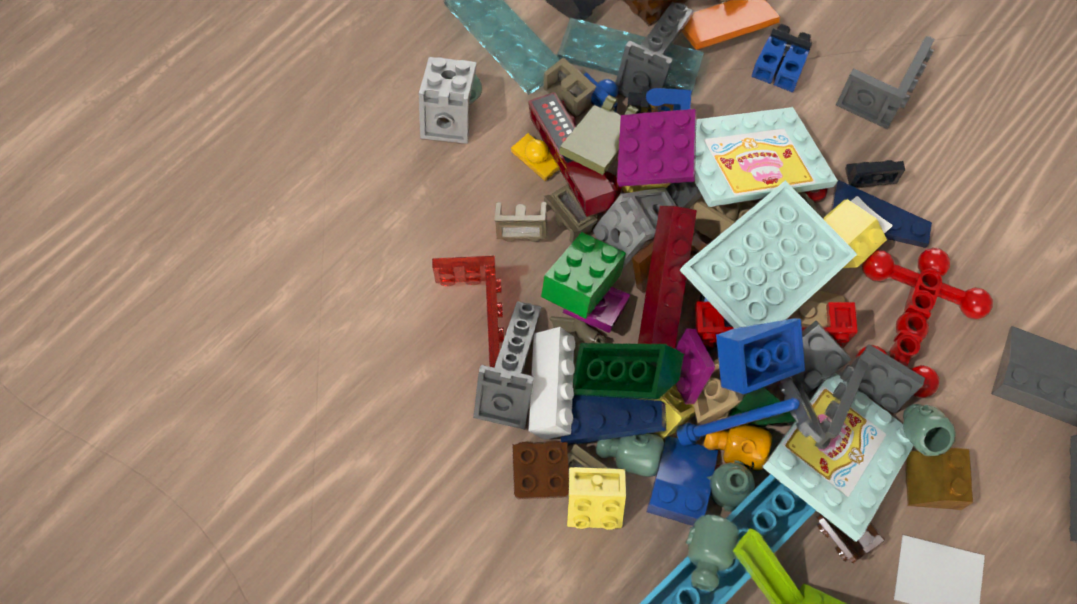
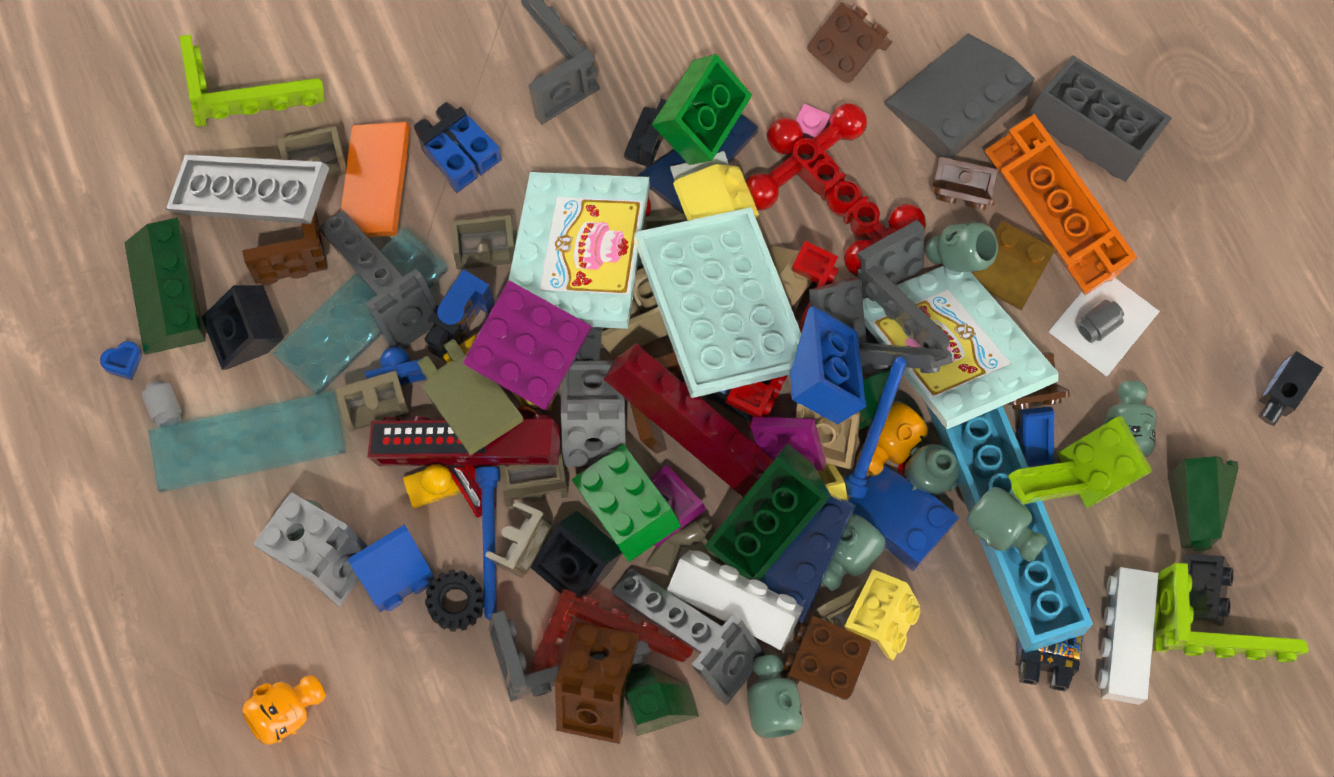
camera: 65 degrees left, 5 degrees up
(331, 130) = (280, 709): none -> light orange piece
(420, 264) = (513, 662): none -> dark grey bracket
(433, 308) = (594, 684): none -> reddish brown bracket
(449, 361) = (657, 699): none -> dark green slope
(456, 147) = (392, 569): none -> blue slope
(458, 190) = (459, 619): none -> black tyre
(490, 446) = (773, 700): none -> sand green piece
(527, 263) = (576, 556): none -> black slope
(543, 179) = (465, 480): none -> sticker
(551, 184) = (487, 481): none -> blue piece
(722, 98) = (482, 241): none -> dark tan window
(806, 556) = (1037, 436): none -> blue tile
(913, 191) = (702, 109): none -> green brick
(936, 571) = (1101, 321): none -> dark grey brick
(959, 277) = (812, 121): none -> bright pink plate
(984, 409) = (964, 181): none -> bracket
(1013, 495) = (1060, 205): none -> orange slope
(1042, 276) = (848, 41): none -> reddish brown bracket

